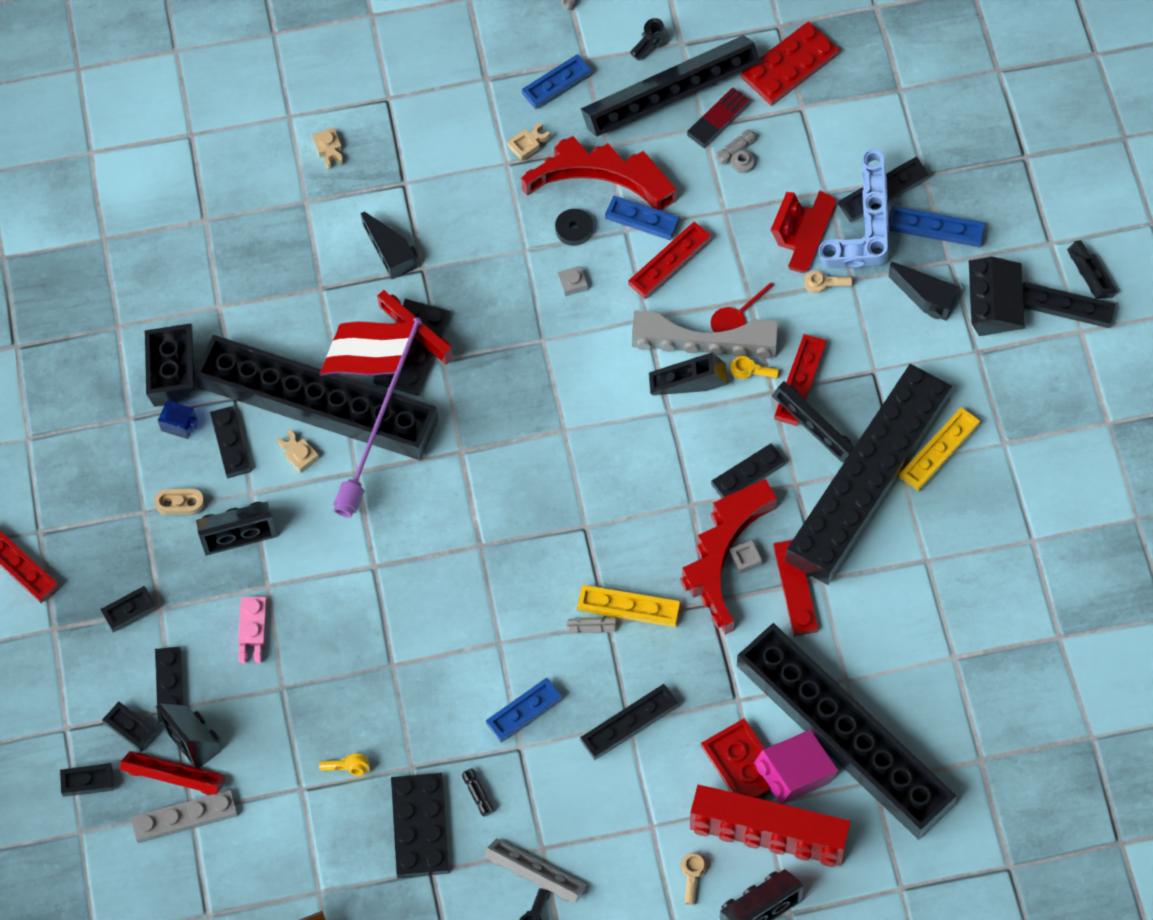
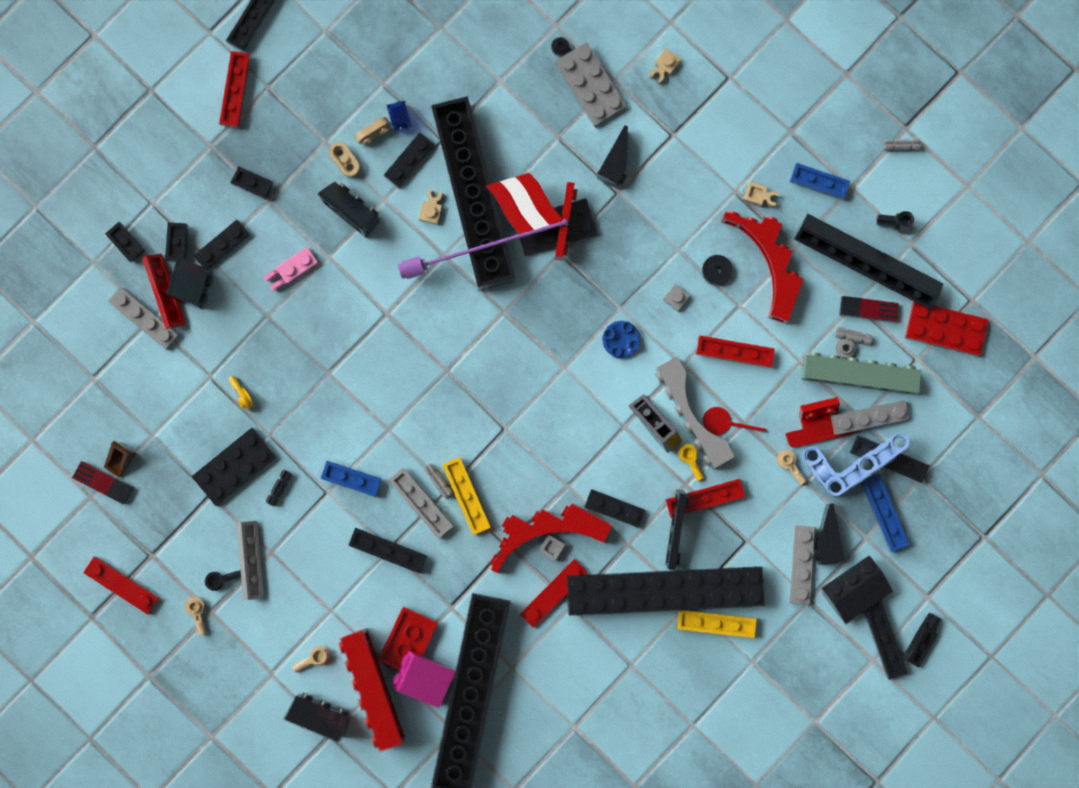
camera: 50 degrees right, 20 degrees up
(169, 363) = (430, 81): black slope -> none
(171, 463) = (366, 135): none -> tan plate
(232, 227) = (560, 46): none -> black plate
(292, 223) = (590, 84): none -> light grey plate
(576, 356) = (621, 339): none -> blue dish
(602, 656) = (421, 503): none -> light grey plate
(642, 217) = (754, 311): blue plate -> none
(778, 162) = (861, 374): none -> sand green brick
(828, 180) = (869, 417): none -> light grey plate
(935, 334) = (802, 565): none -> light grey plate

